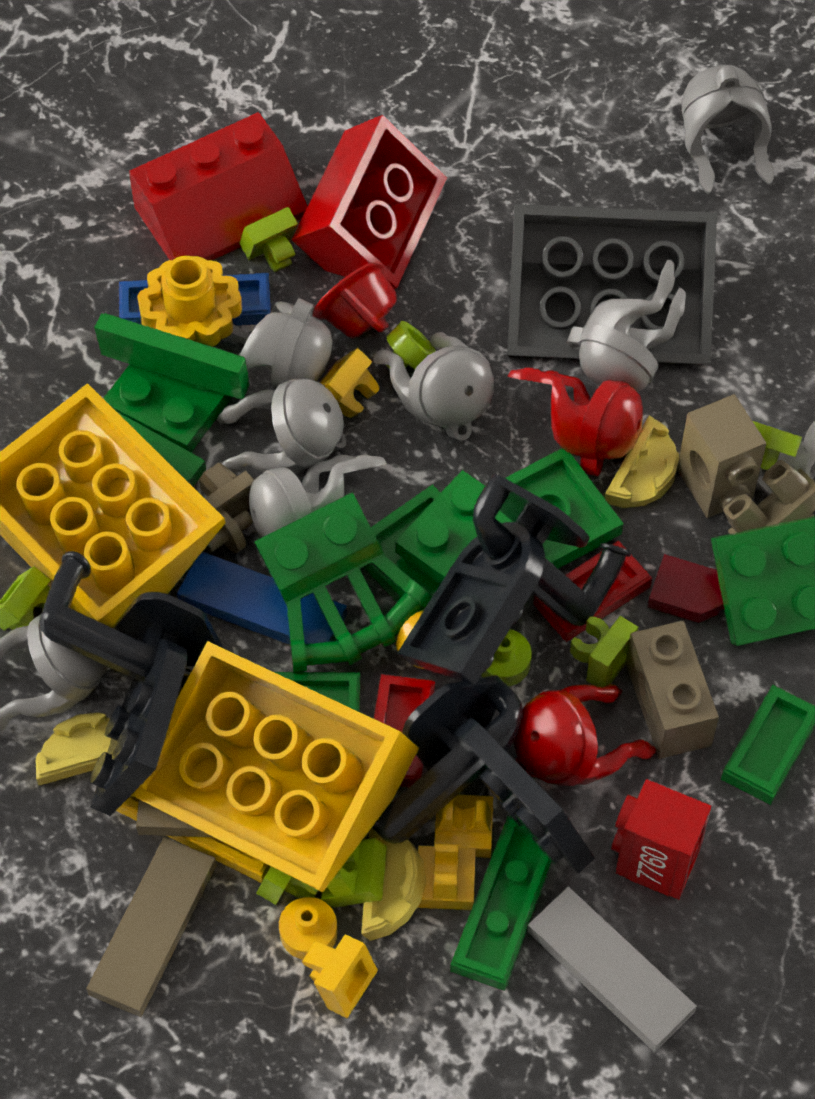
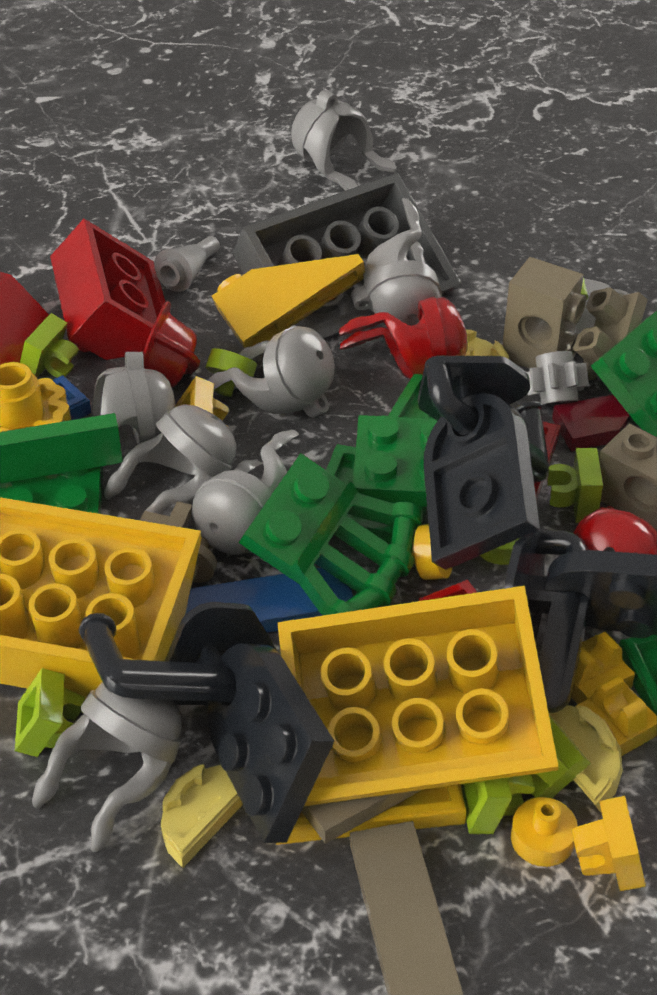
camera: 35 degrees left, 15 degrees down
(460, 200) = (180, 265): none -> light grey cone
(483, 299) = (282, 295): none -> yellow slope
(685, 529) = (557, 378): none -> light grey gear

